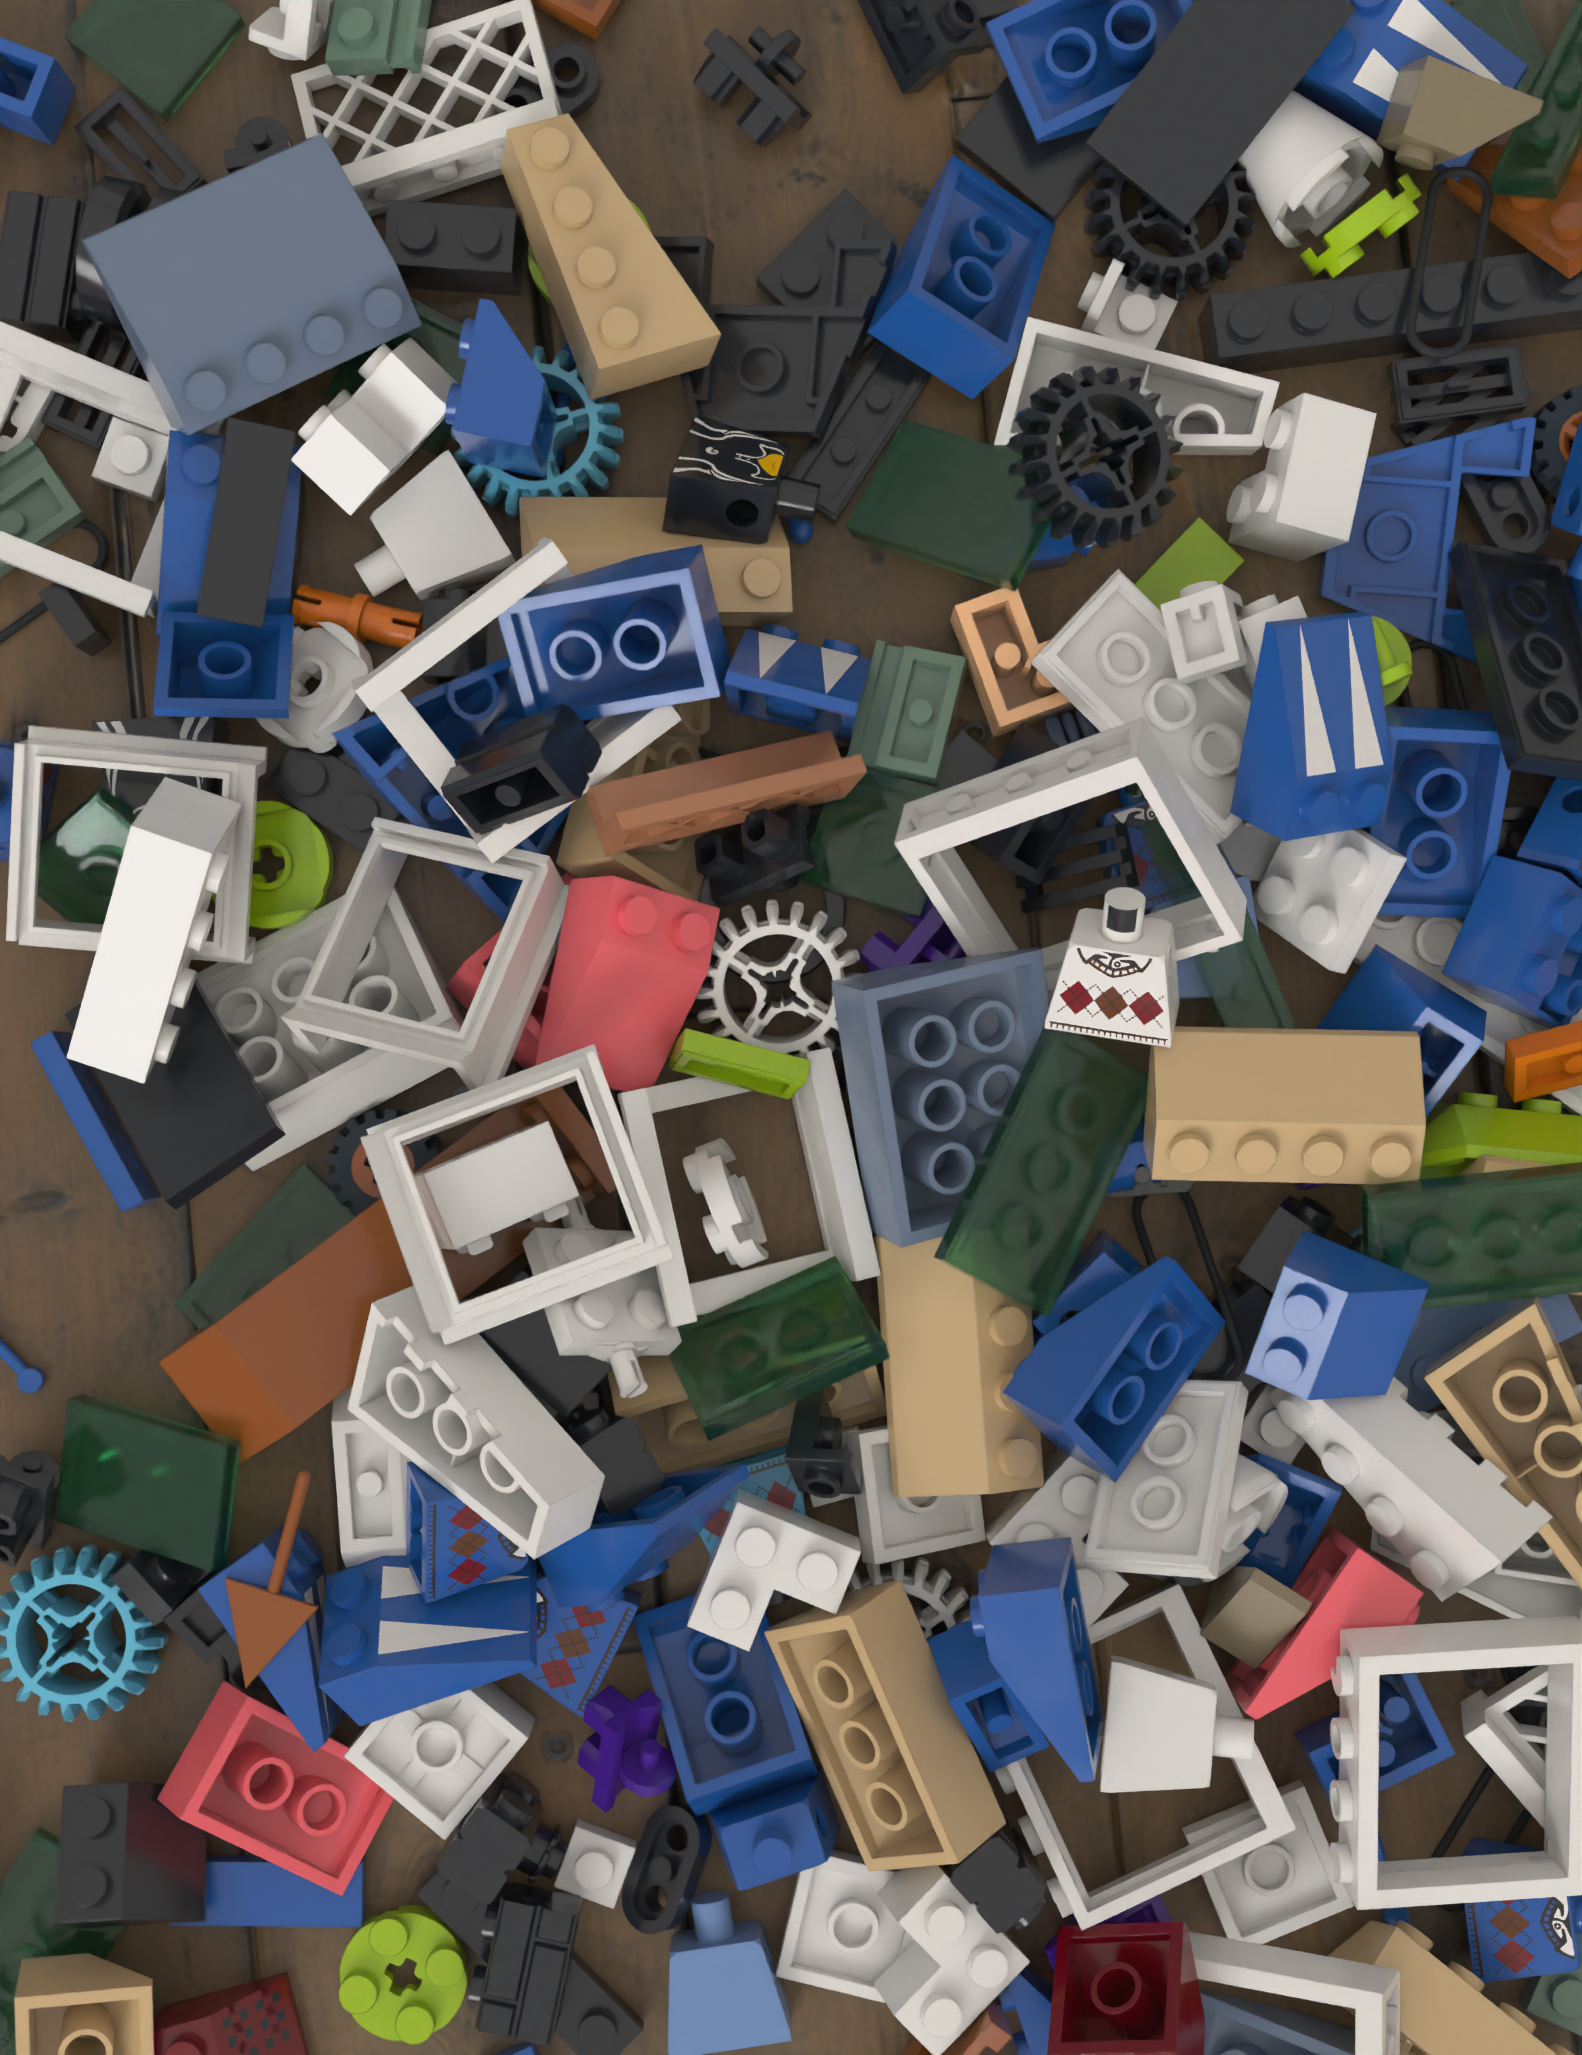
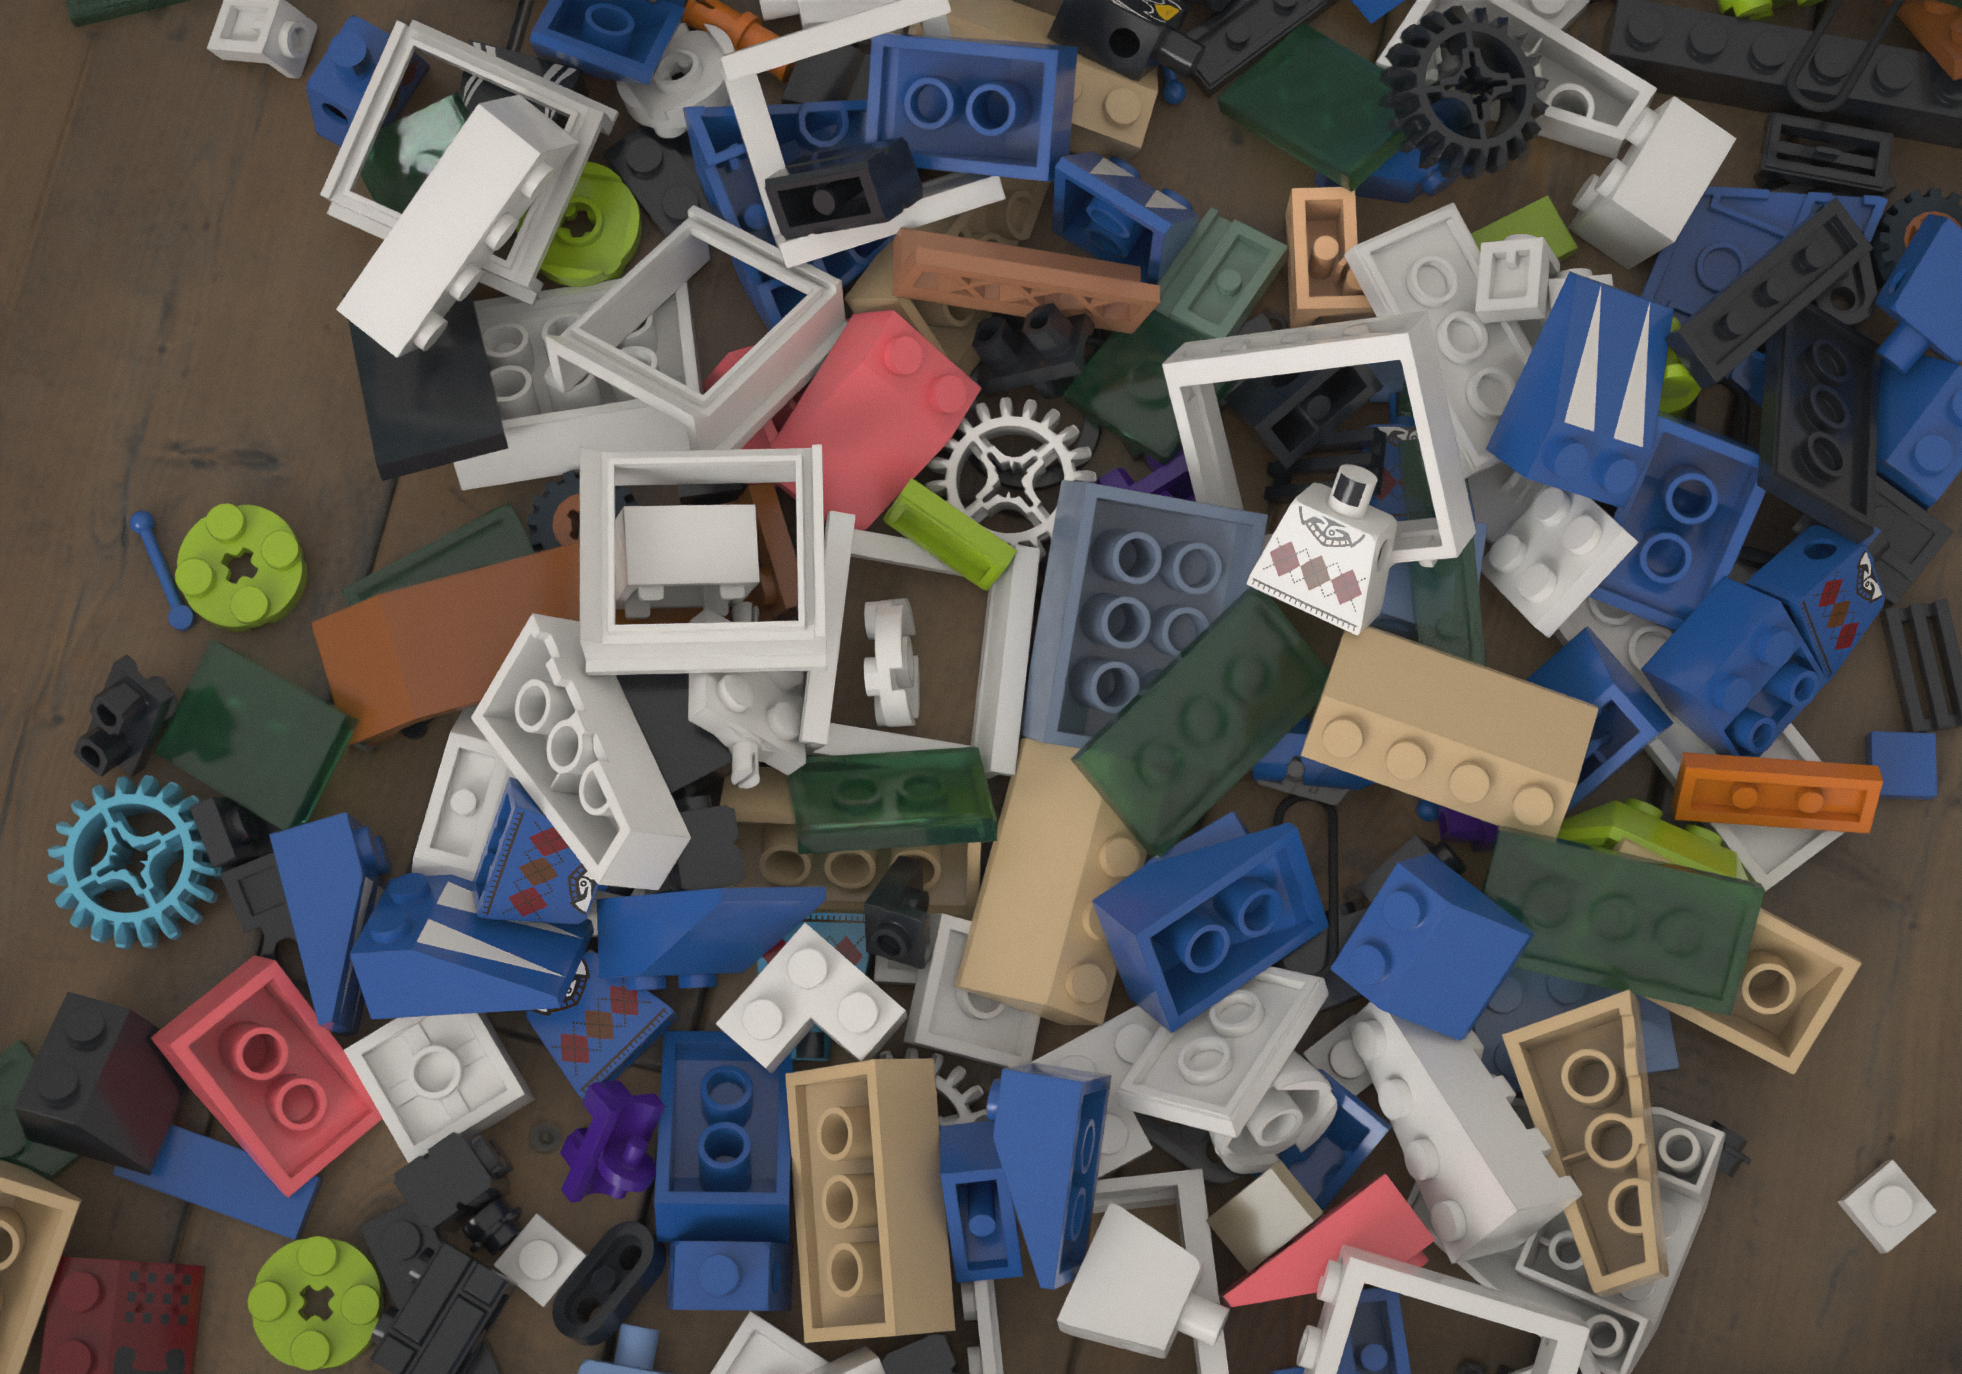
camera: 20 degrees right, 10 degrees down
(37, 1333) = (229, 533): none -> lime plate
(95, 1122) = (333, 397): blue tile -> none
(263, 1616) = (324, 880): dark orange piece -> none
(1454, 562) = (1768, 294): none -> black plate

